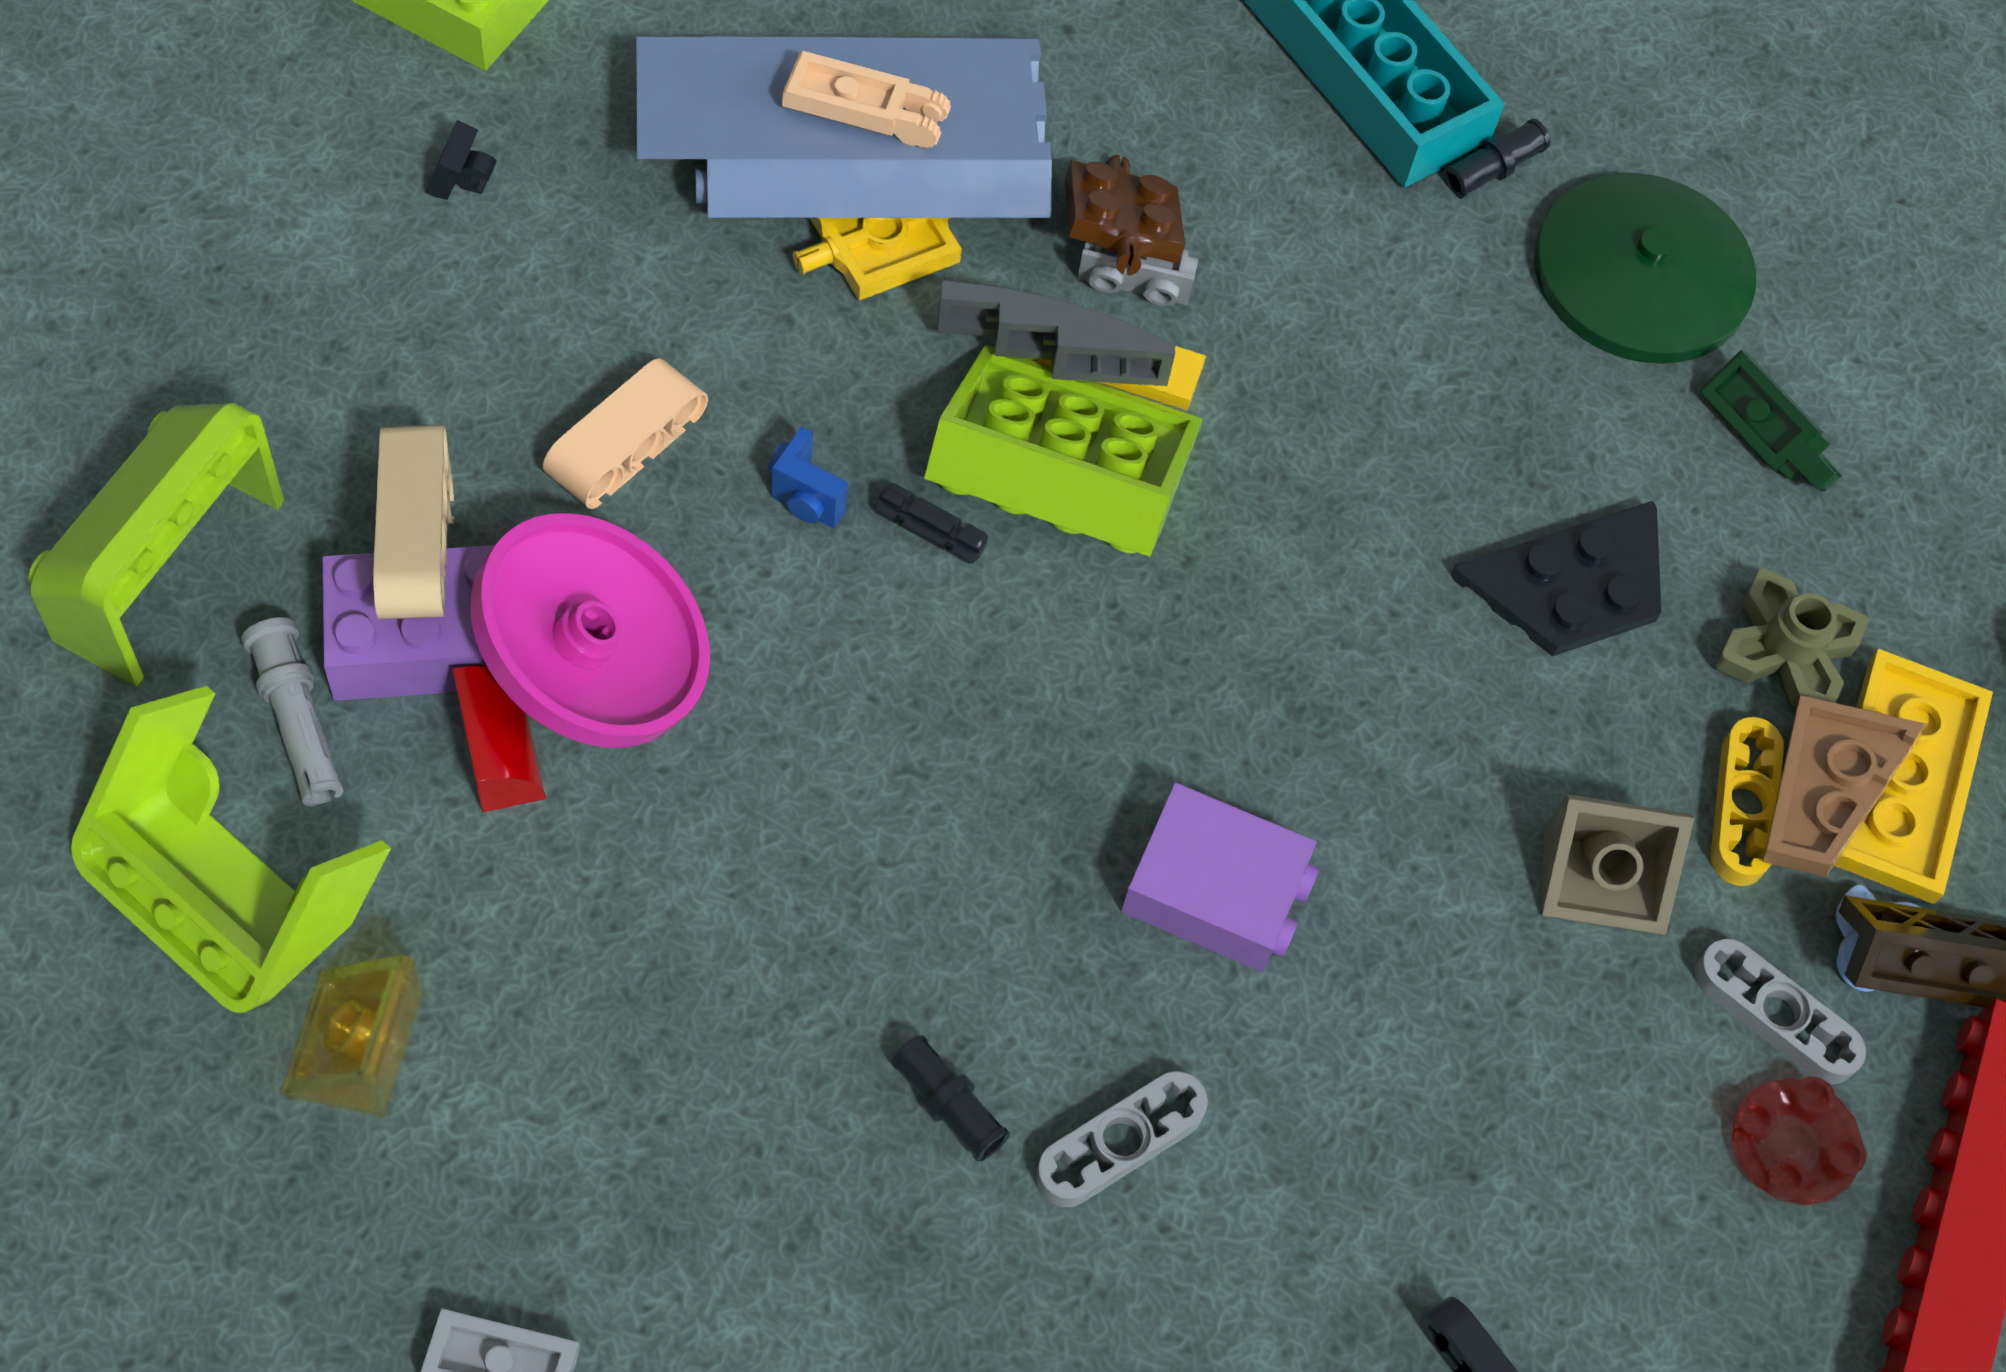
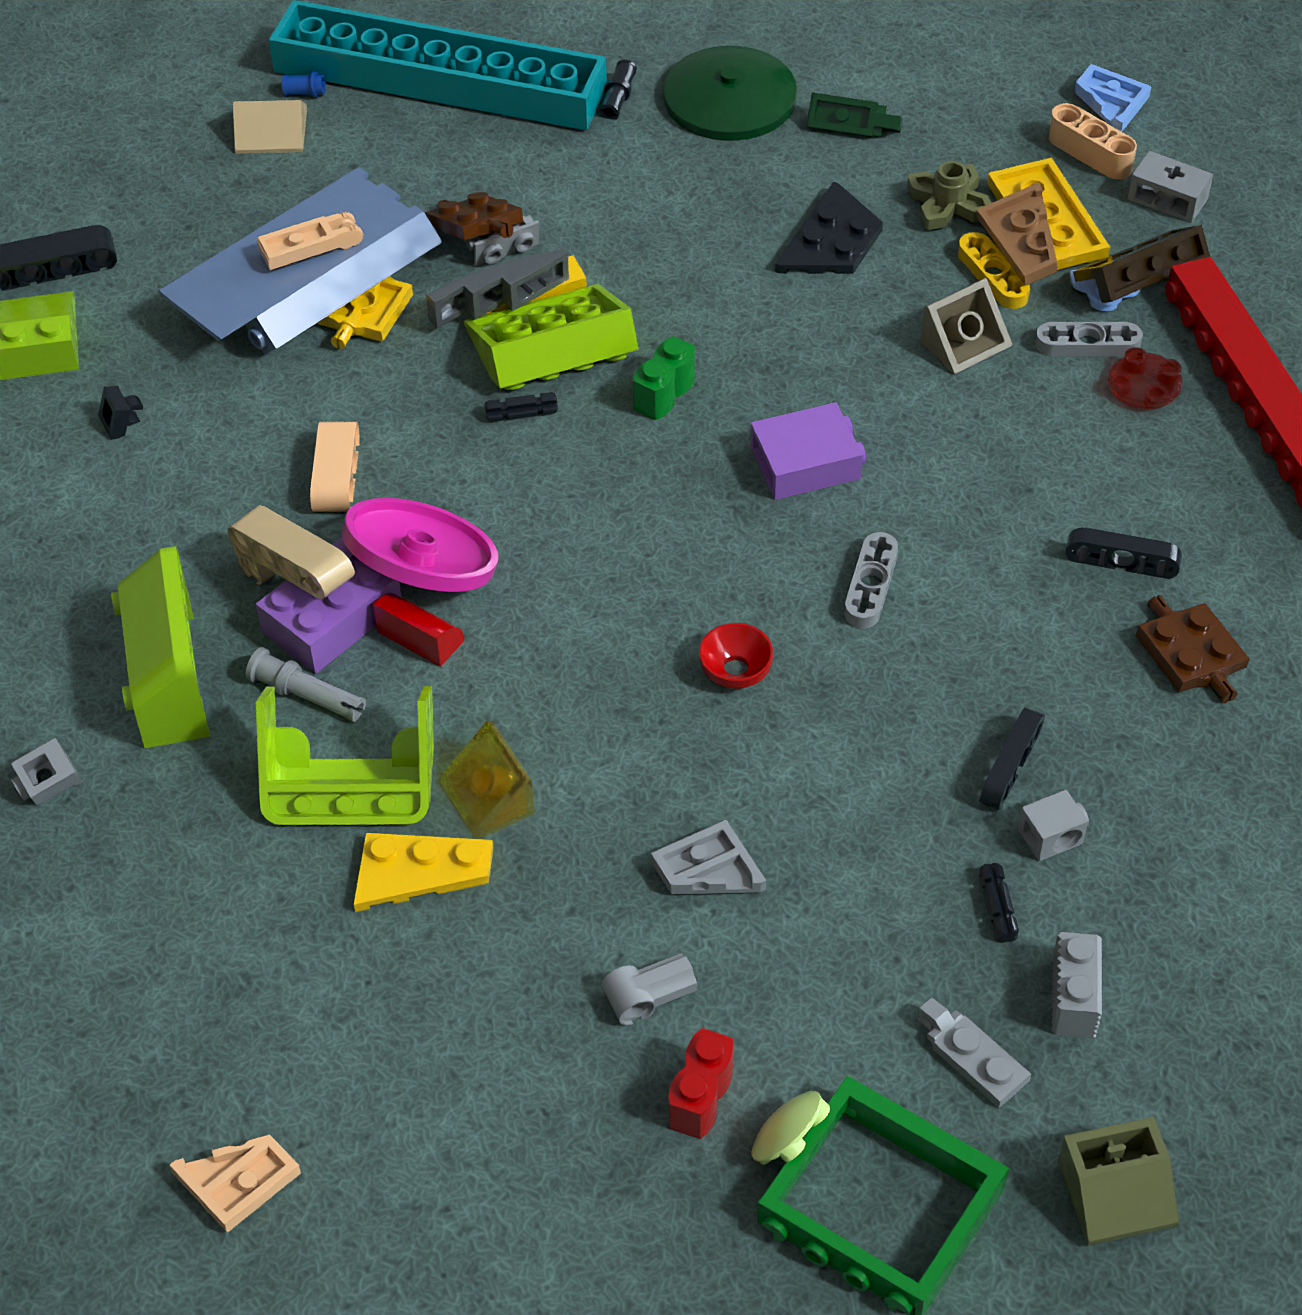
camera: 30 degrees left, 10 degrees down
(174, 1074) = (412, 865): none -> yellow wing
(803, 487) = (447, 428): blue bracket -> none
(834, 1078) = (739, 643): none -> red piece
(950, 1098) = (782, 616): black pin -> none
(1130, 625) = (664, 378): none -> green brick

